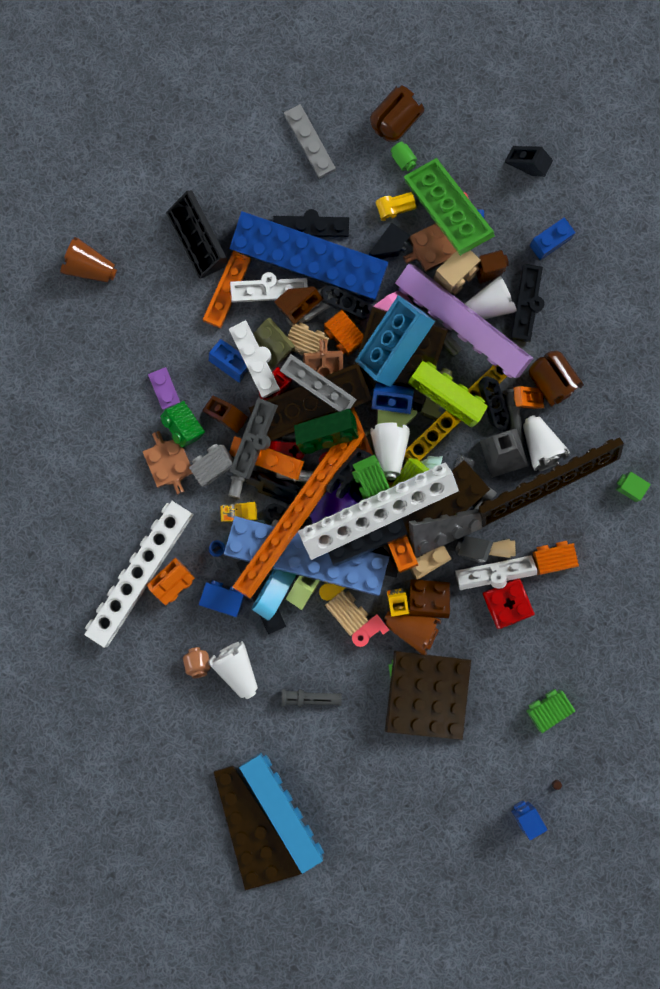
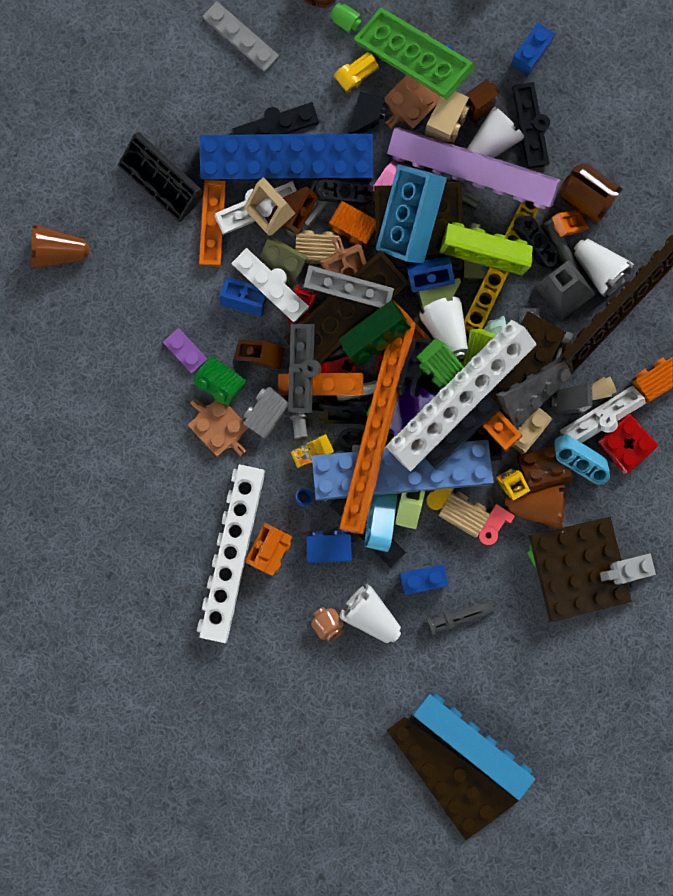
camera: 20 degrees left, 0 degrees up
(285, 302) = (281, 215): none -> tan tile
(291, 655) = (424, 579): none -> blue brick
(464, 603) = (582, 459): none -> medium azure beam
(470, 711) = (630, 569): none -> light grey hinge

